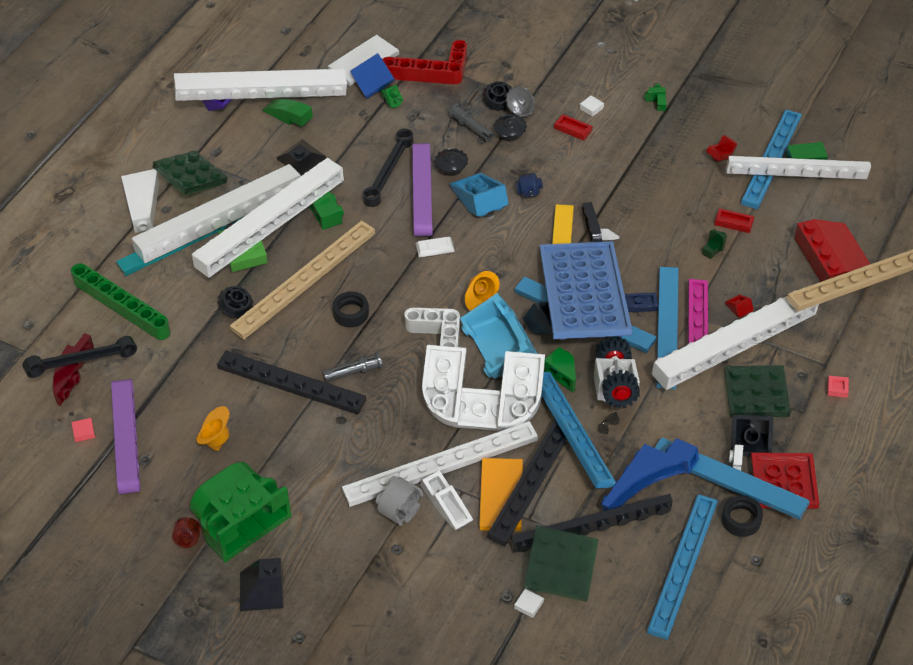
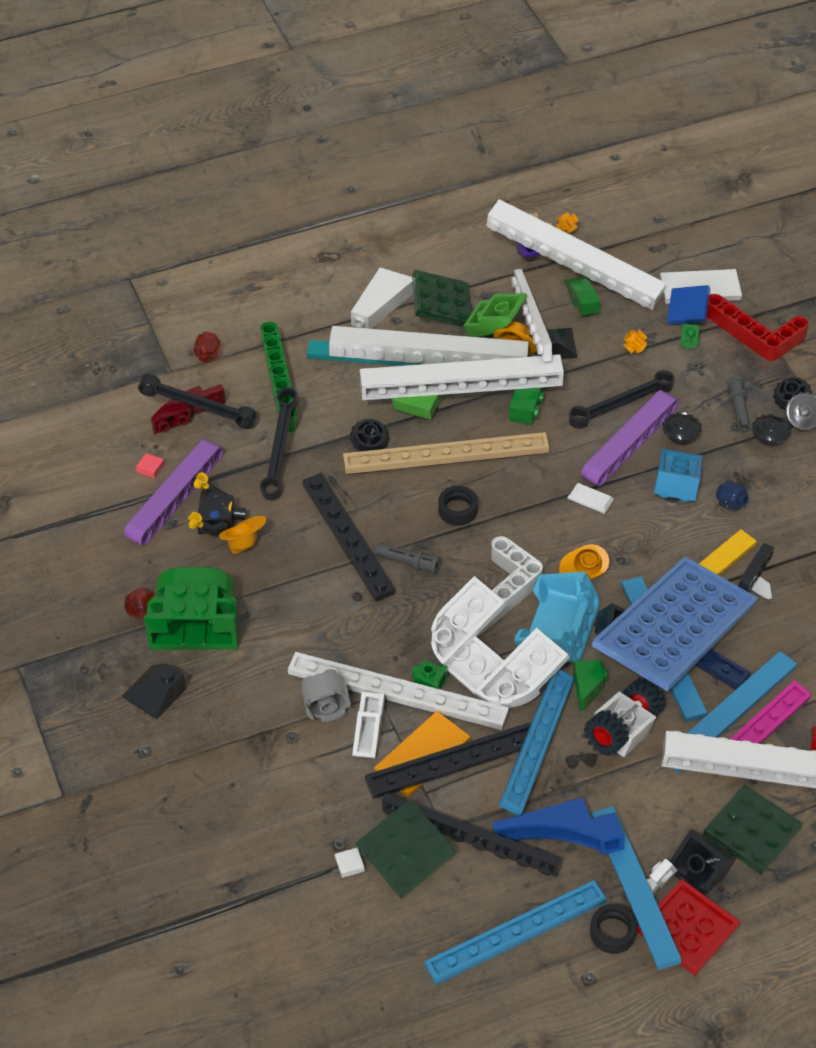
camera: 40 degrees right, 0 degrees up
(39, 314) = (206, 346): none -> clear red head
(173, 426) = (215, 509): none -> black torso
(176, 347) = (279, 443): none -> black piece
(227, 65) = (567, 222): none -> light orange gear
(245, 159) = (493, 314): none -> bright green slope
(271, 163) = (518, 332): none -> light orange piece
(276, 143) = (532, 316): none -> white plate
(359, 121) = (635, 341): none -> light orange gear
(453, 436) = (430, 674): none -> green brick

